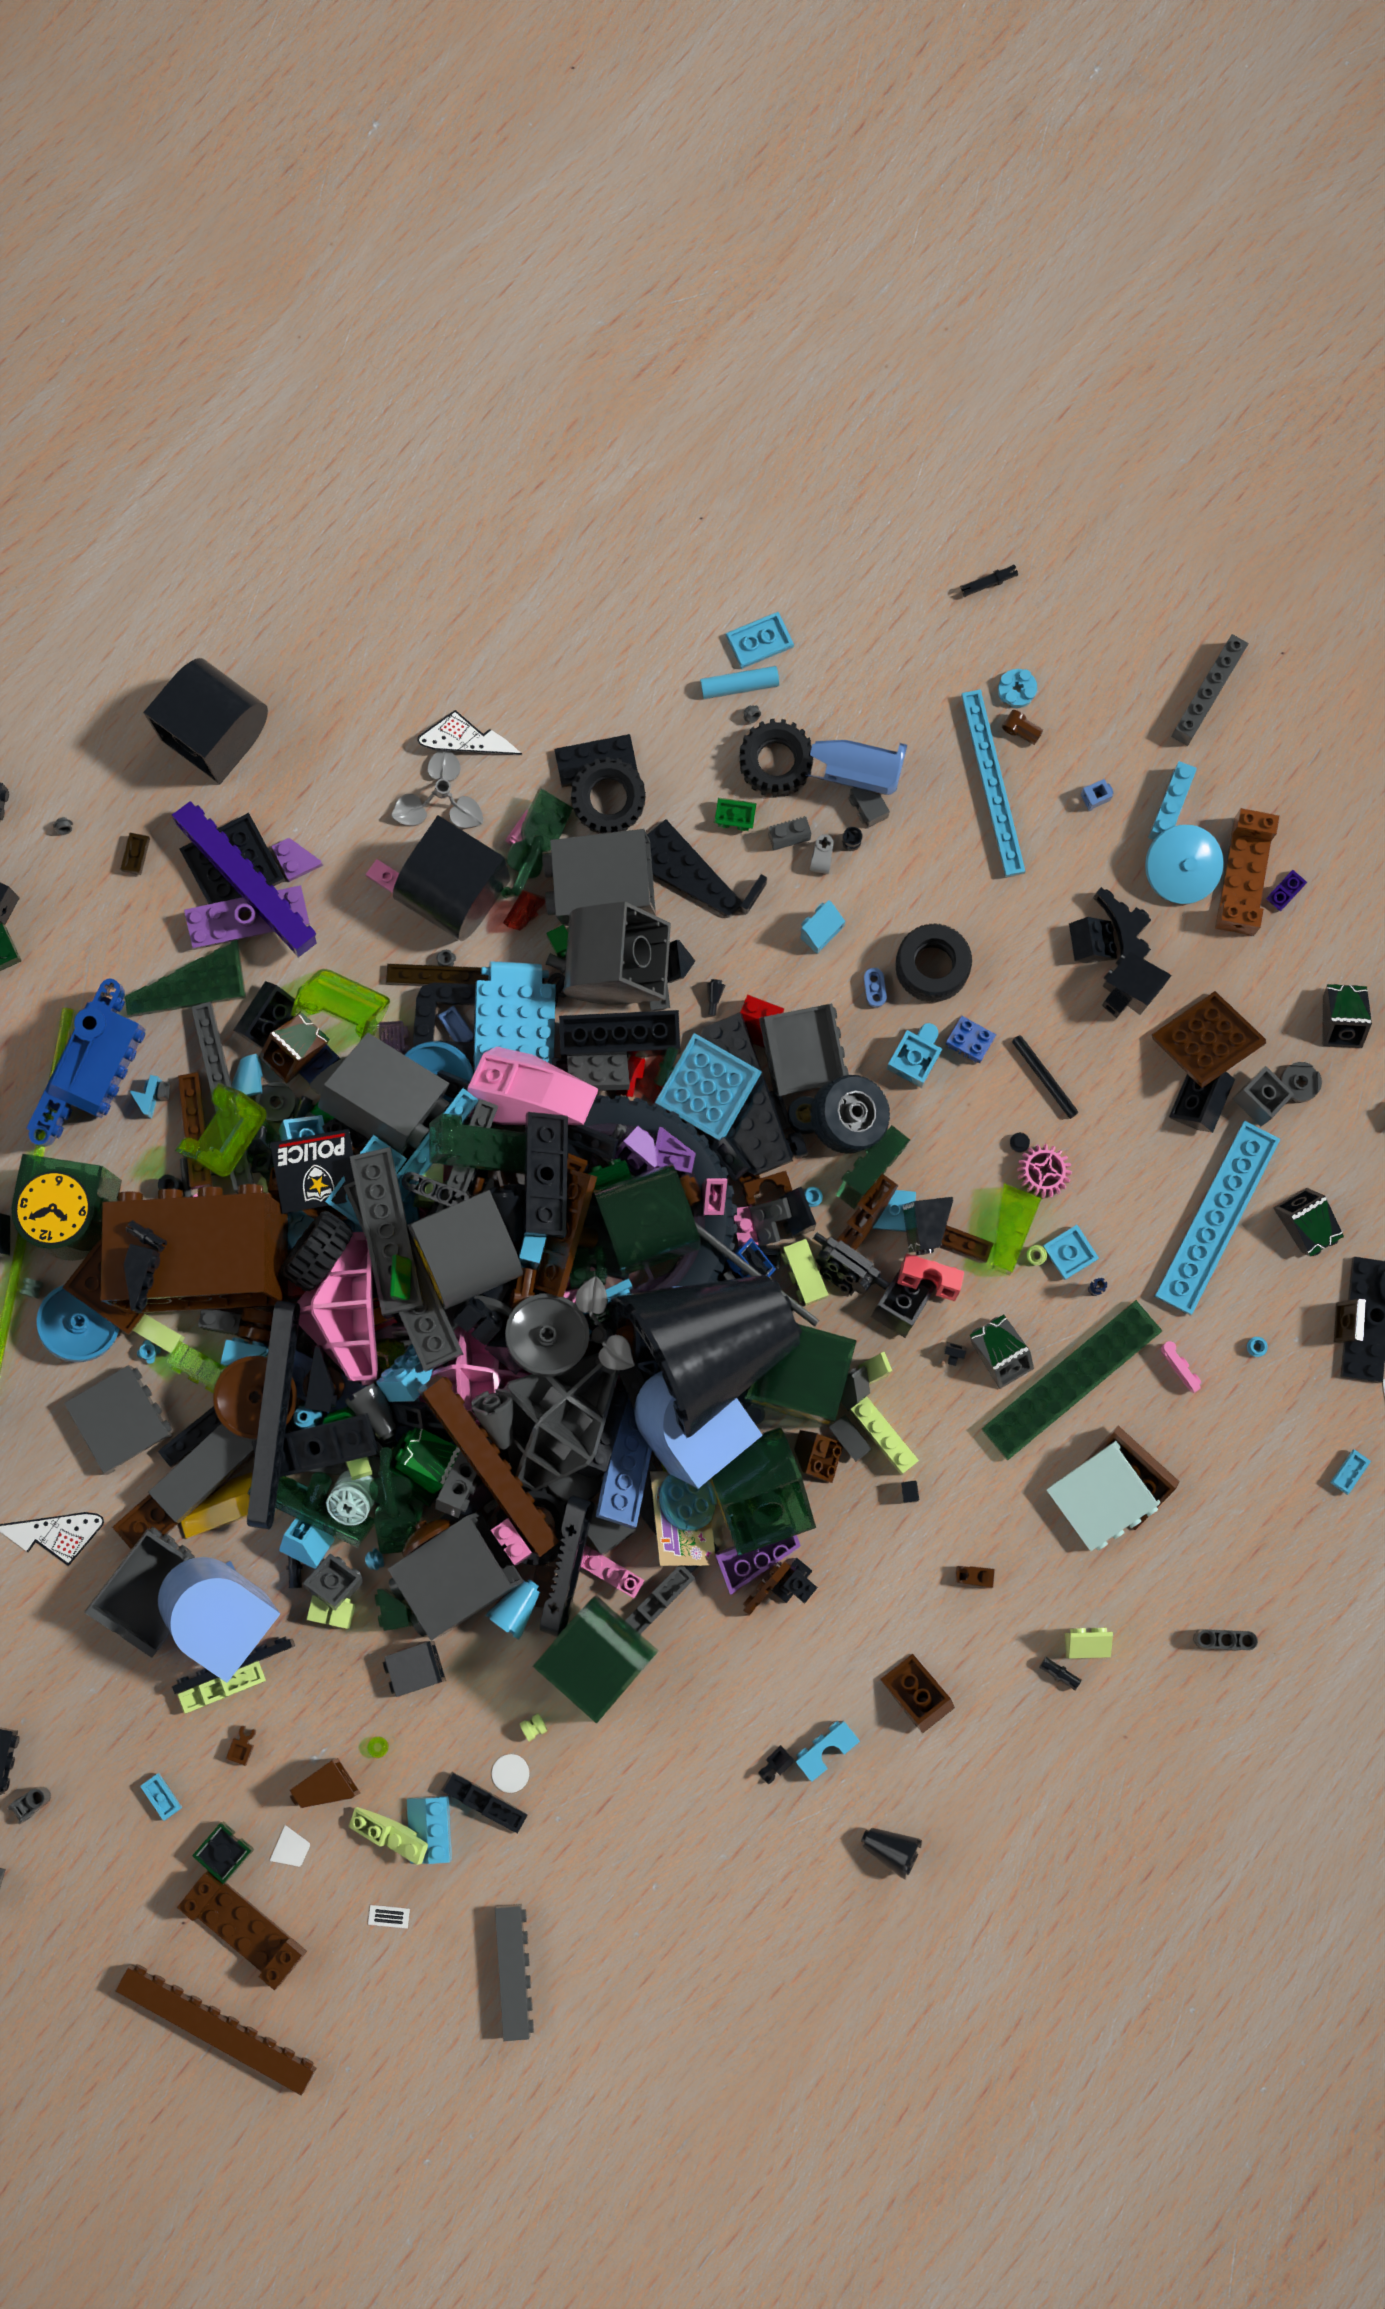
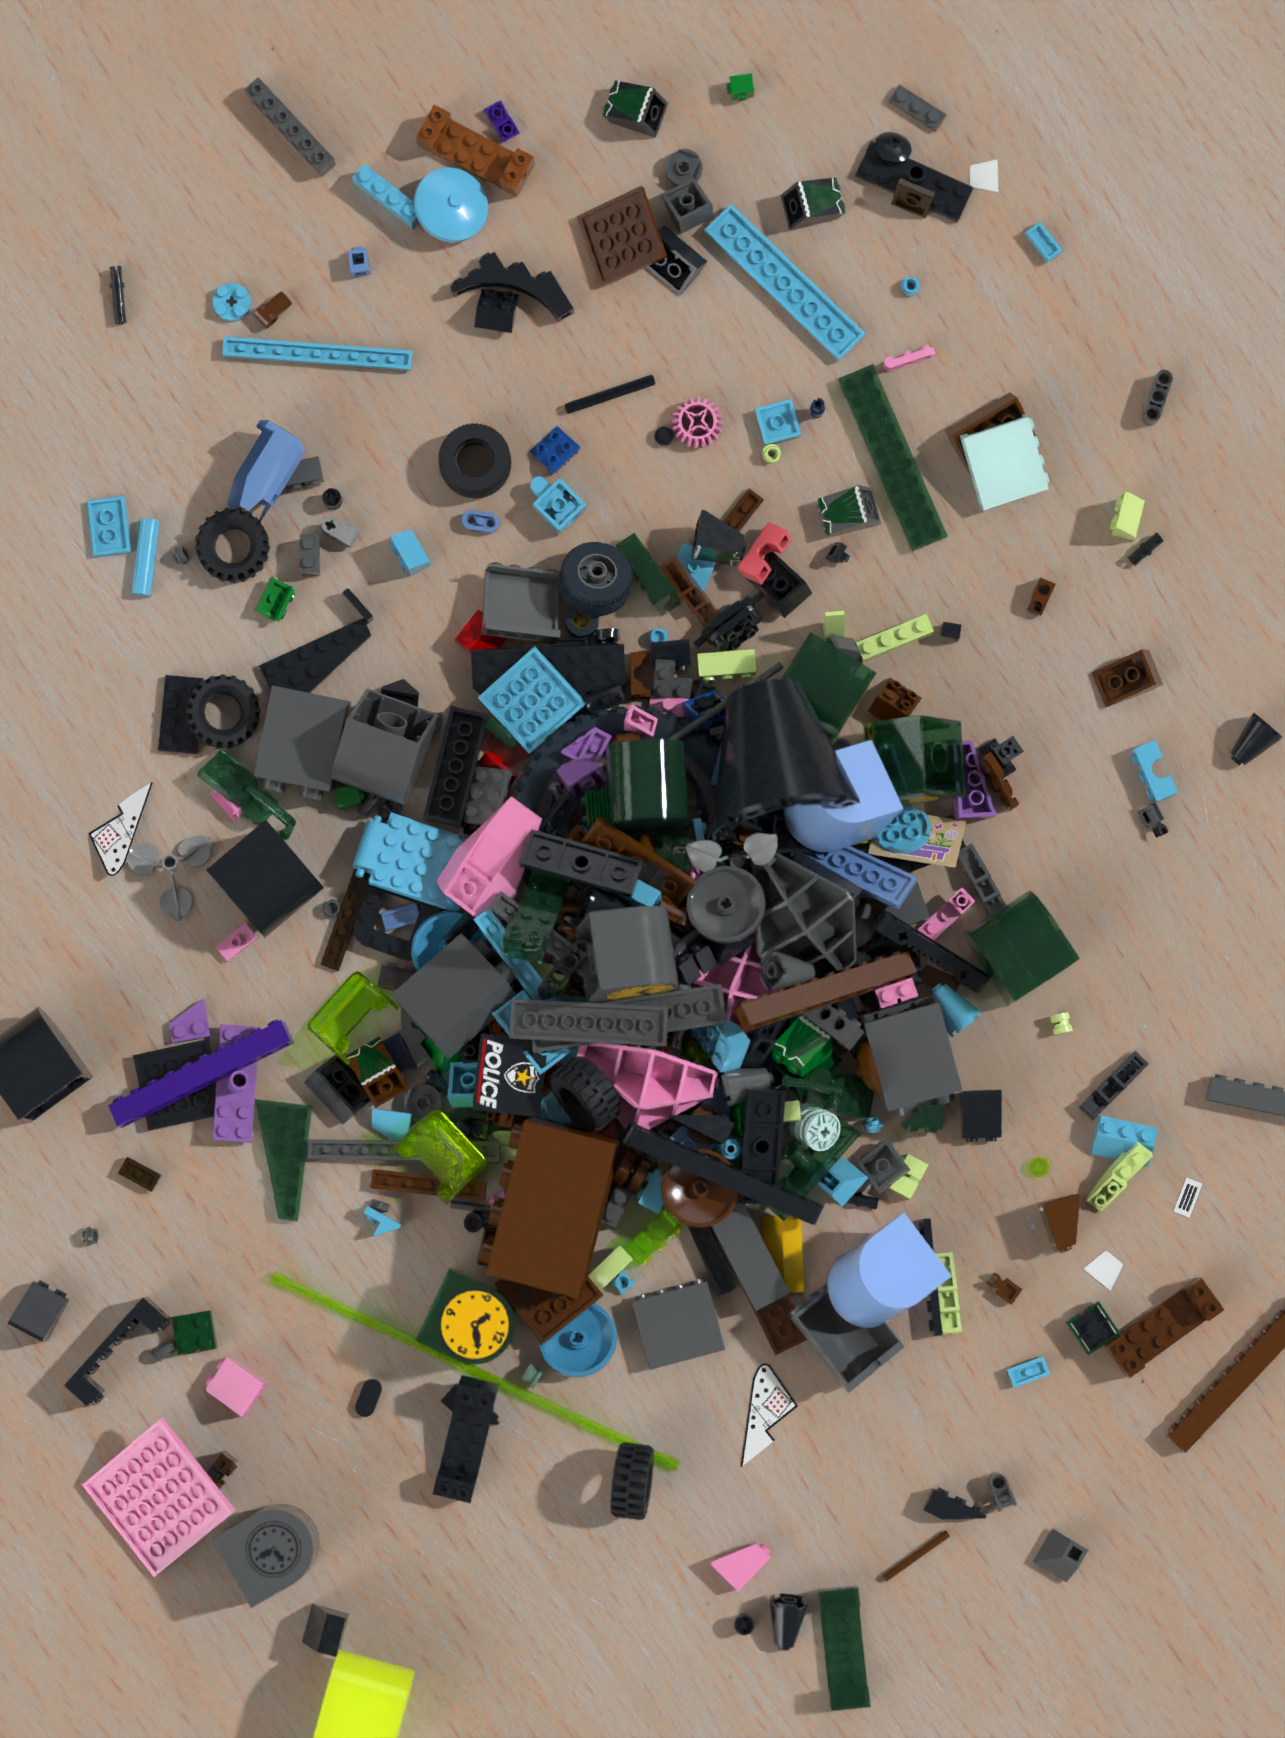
camera: 75 degrees left, 5 degrees up
(89, 1065) = (340, 1263): blue piece -> none
(139, 1273) = (564, 1254): black slope -> none
(146, 1236) = (532, 1239): black pin -> none
(400, 1278) = (638, 1019): green slope -> none
(510, 1773) = (1094, 1056): white sticker -> none
(524, 910) = (309, 821): clear red wing -> none
(714, 989) = (439, 668): black cone -> none
(850, 1438) = (889, 668): dark grey slope -> none
(1013, 1223) = (740, 466): clear neon green wedge -> none
(1135, 981) = (551, 283): black slope -> none

